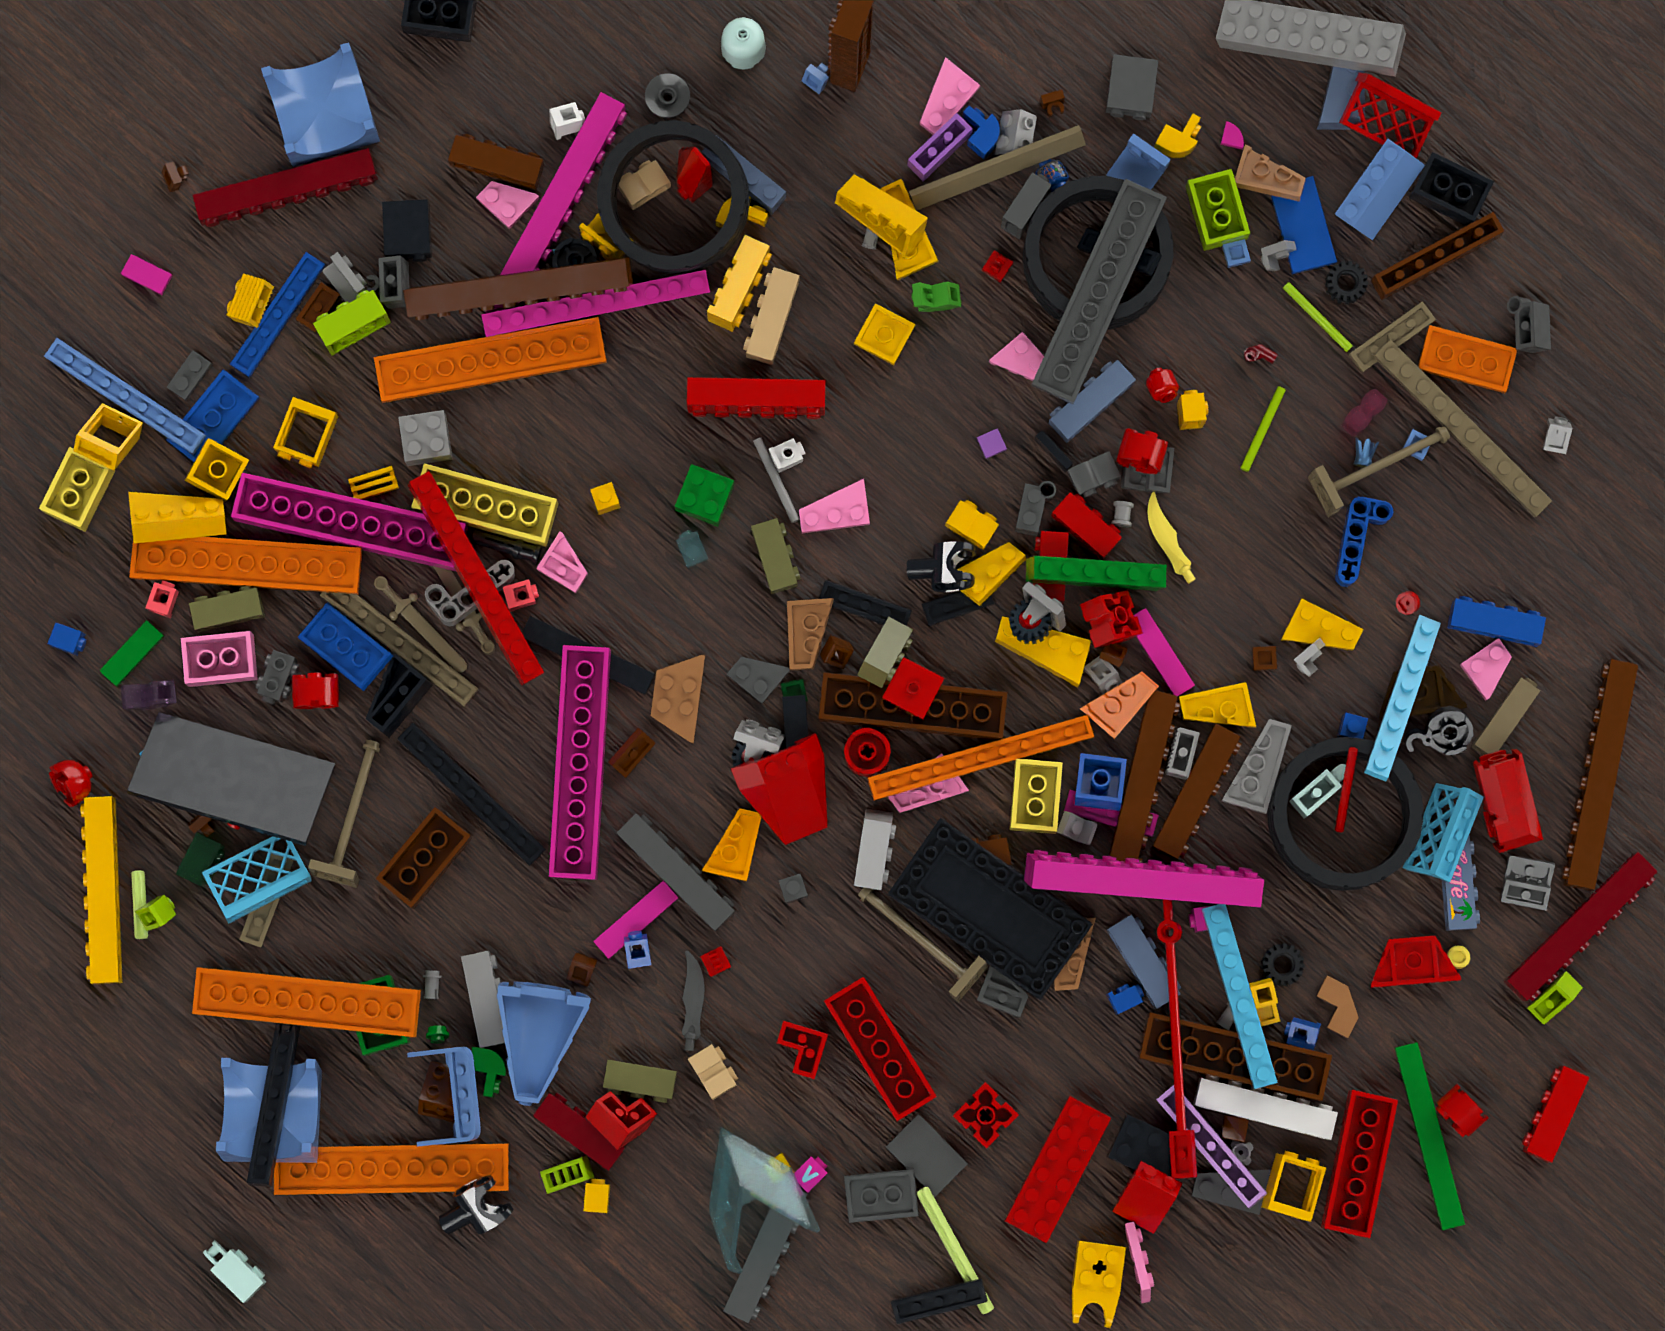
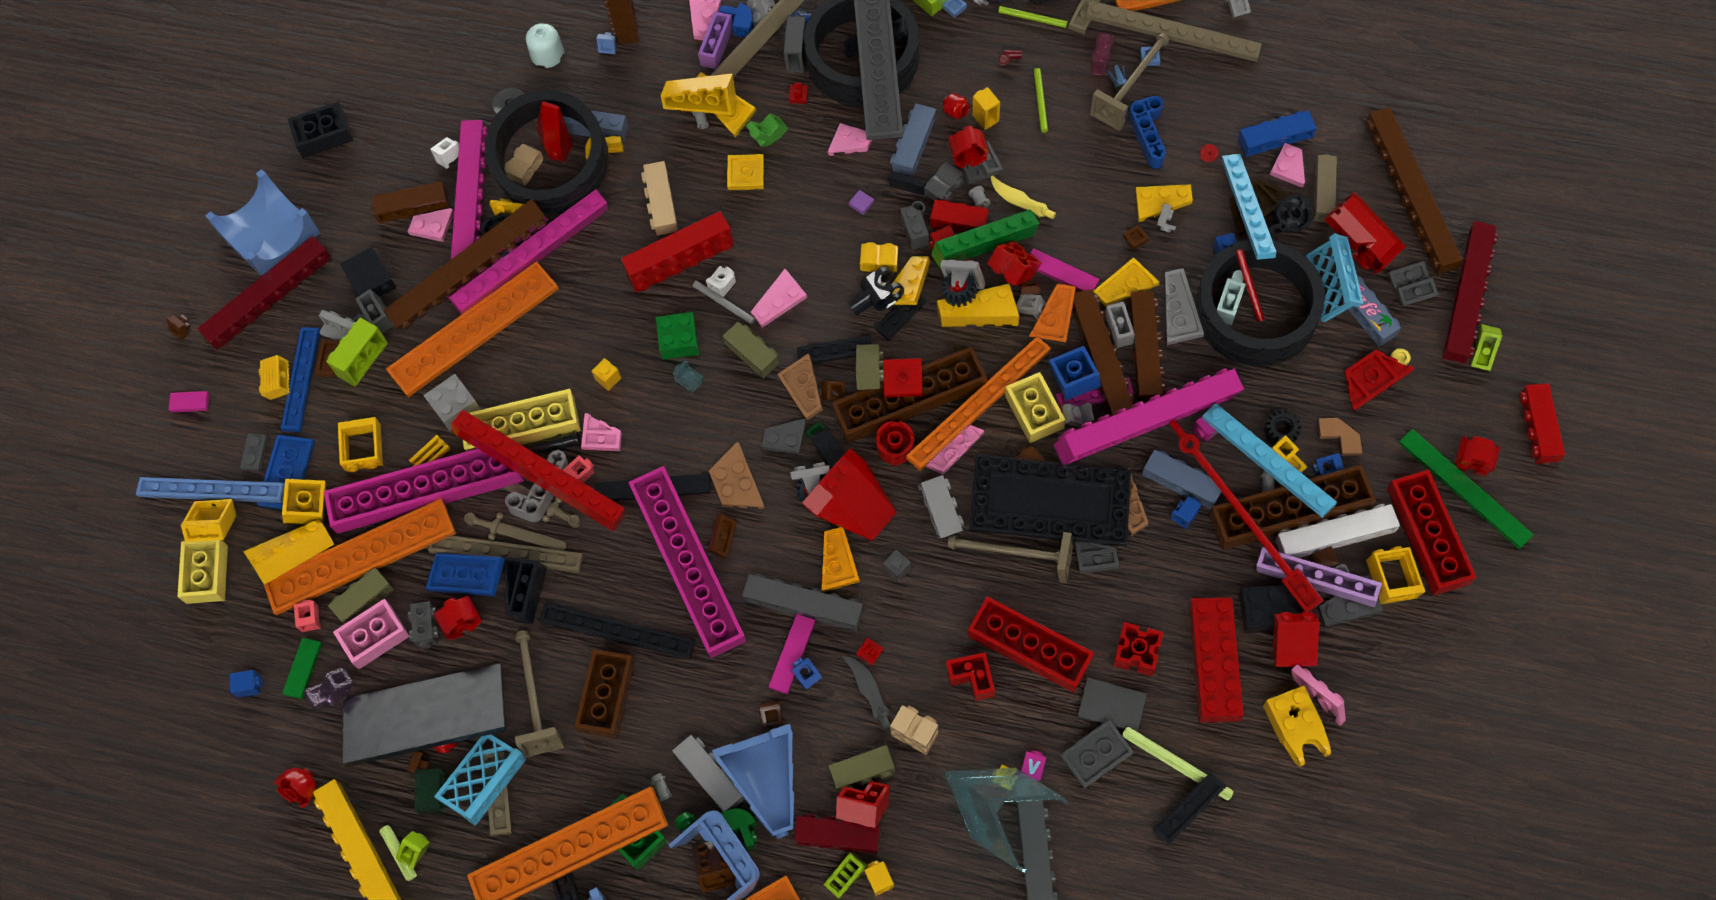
camera: 20 degrees left, 15 degrees down
(739, 283) = (624, 189): yellow wedge -> none

